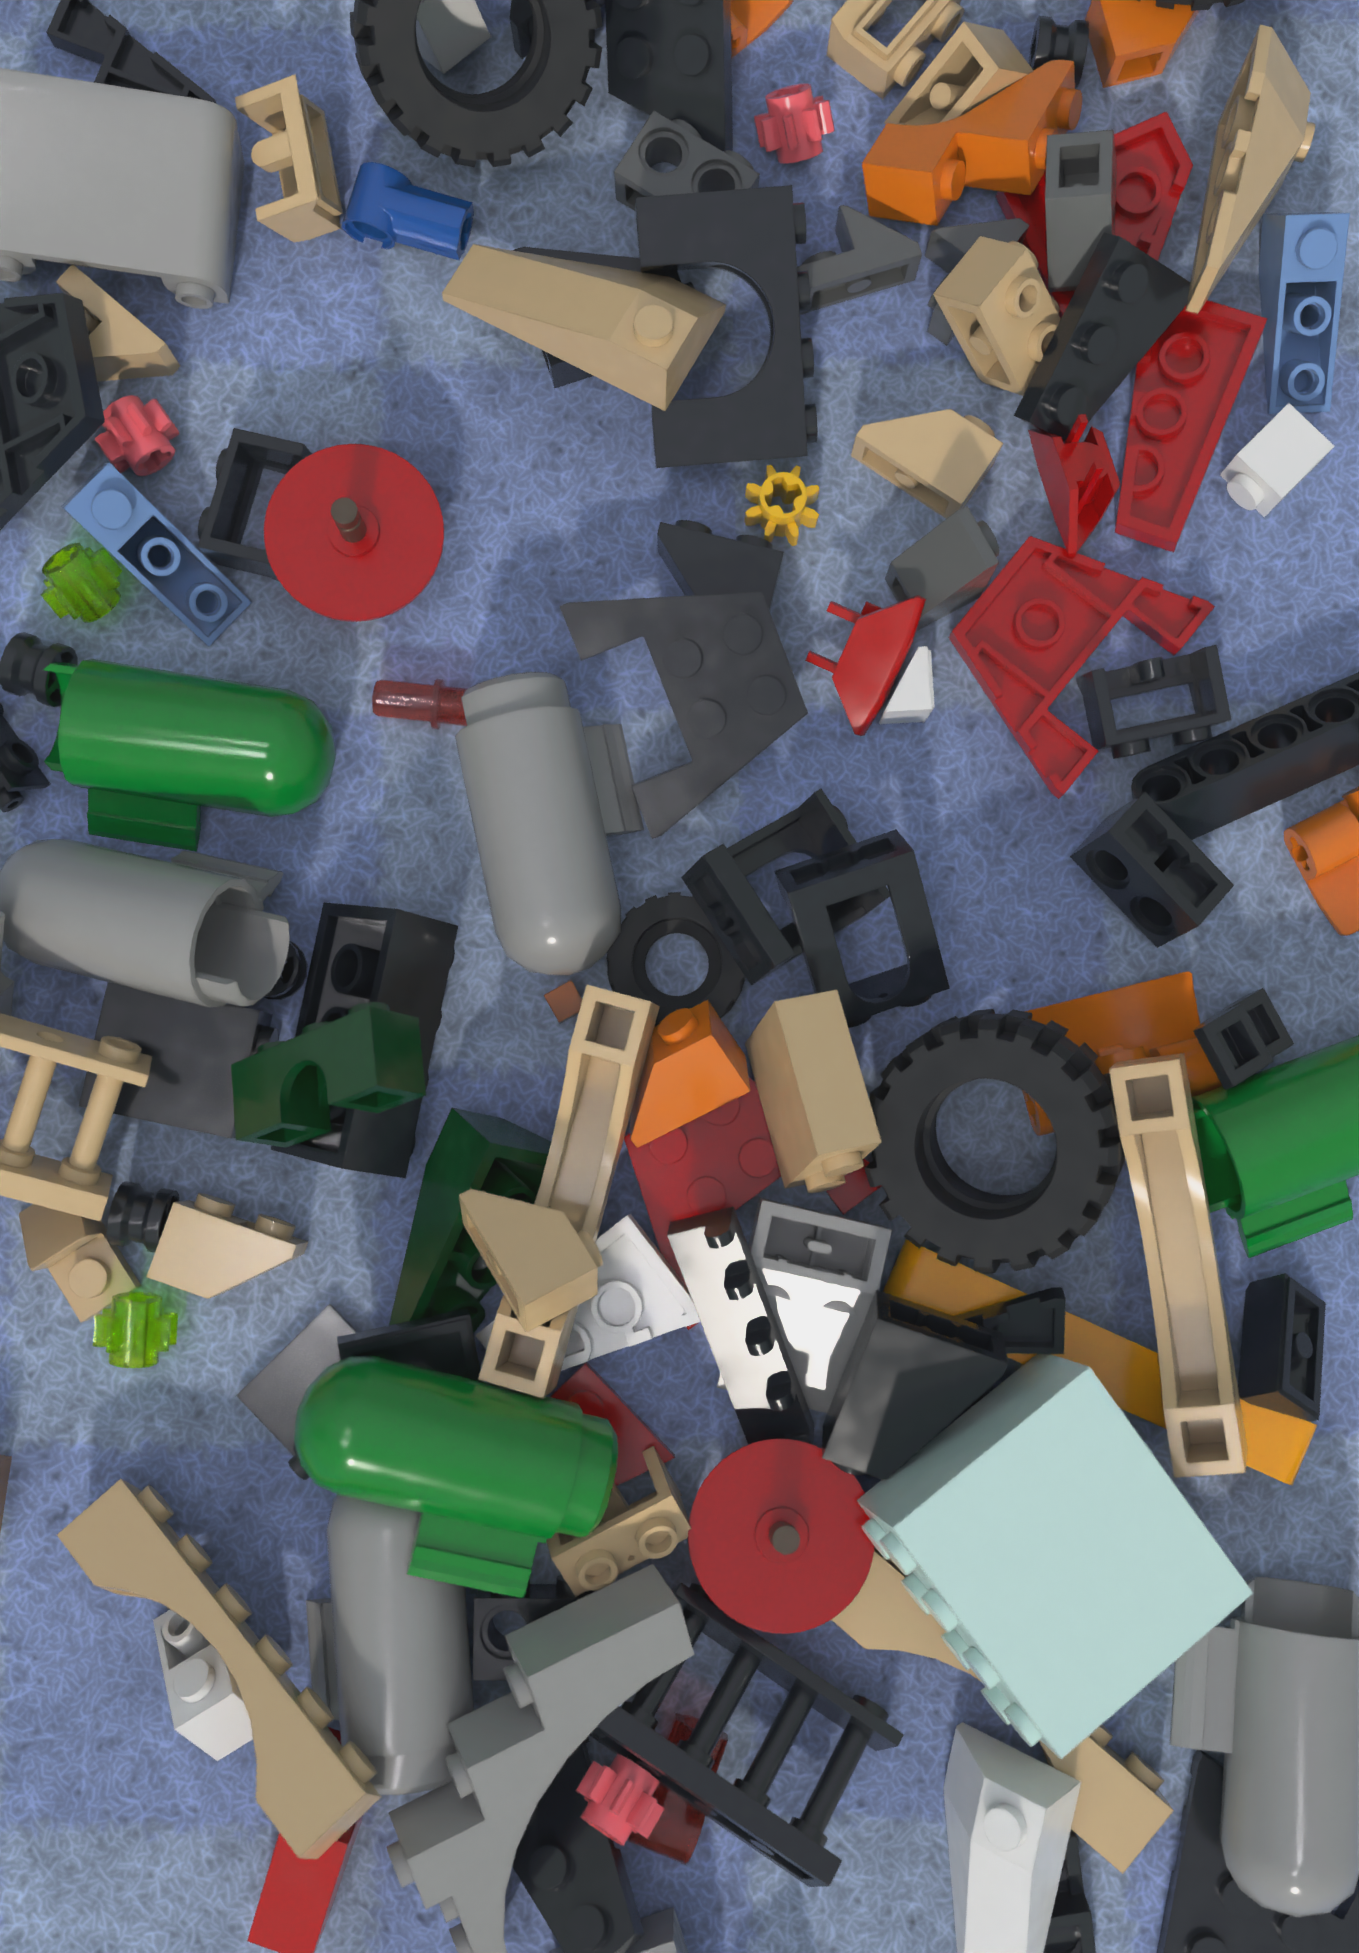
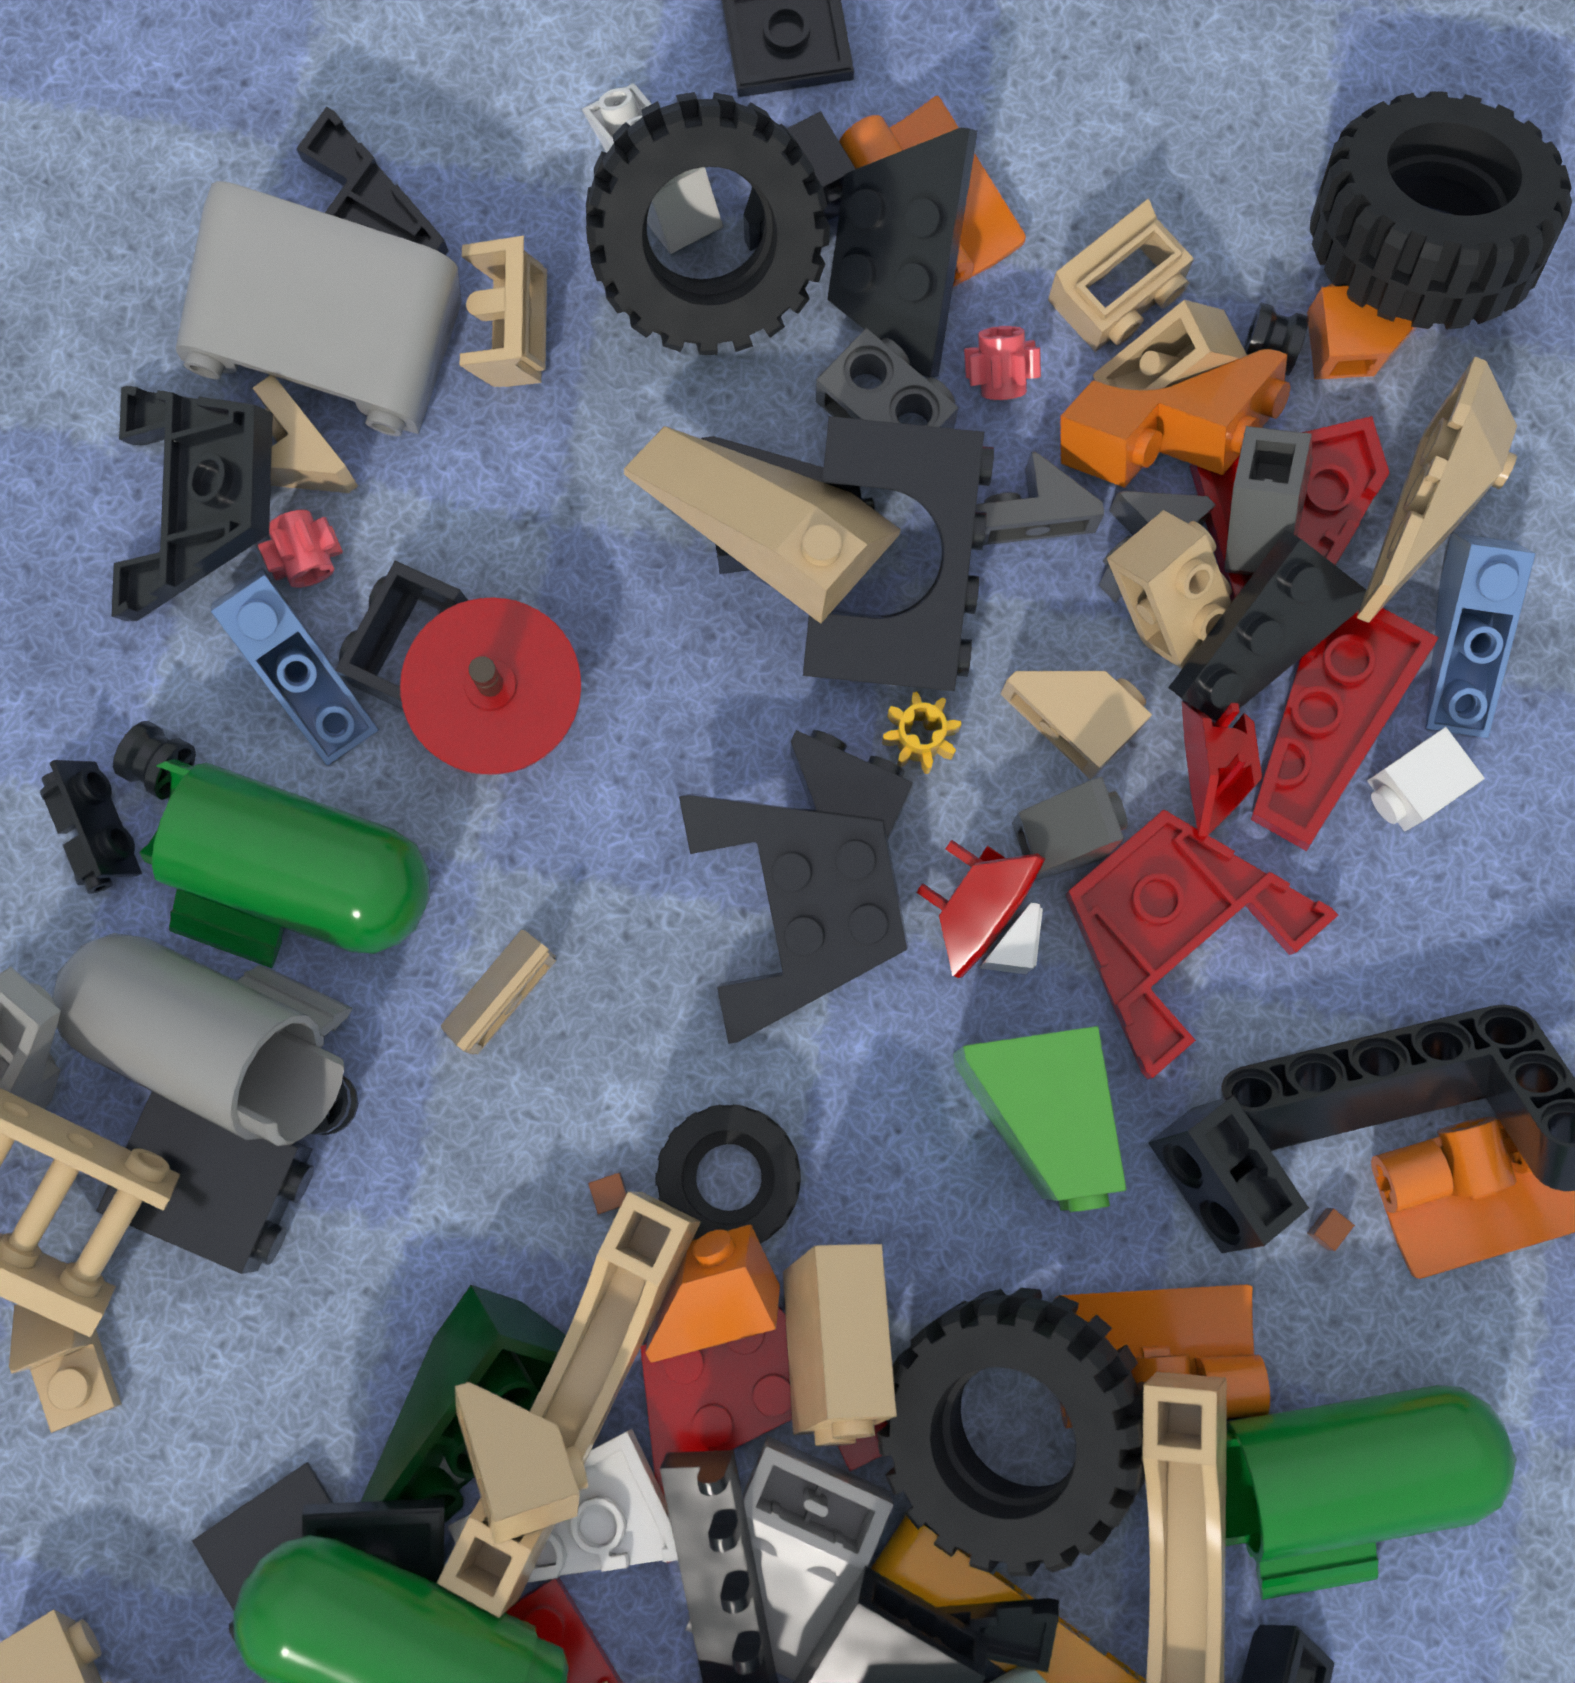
camera: 10 degrees right, 5 degrees down
(81, 582) = (214, 682): clear neon green gear -> none
(135, 1330) = (103, 1453): clear neon green gear -> none
(139, 1215) = (136, 1335): black wheel -> none
(213, 1251) = (204, 1384): tan slope -> none
(353, 1063) = (361, 1226): dark green arch -> none
(385, 959) = (397, 1197): black slope -> none
(395, 211) = (596, 376): blue piece -> none
(419, 702) = (539, 866): clear red axle -> none
(421, 832) = (498, 993): none -> tan slope
(541, 815) = (619, 997): light grey piece -> none
(735, 909) = (797, 1143): black panel -> none
(849, 873) = (916, 1124): black panel -> none
(973, 839) = (1051, 1111): none -> bright green slope
(1198, 670) = (1316, 994): black window -> none
(1243, 1038) = (1292, 1368): black slope -> none
(1256, 906) = (1330, 1229): none -> dark orange piece

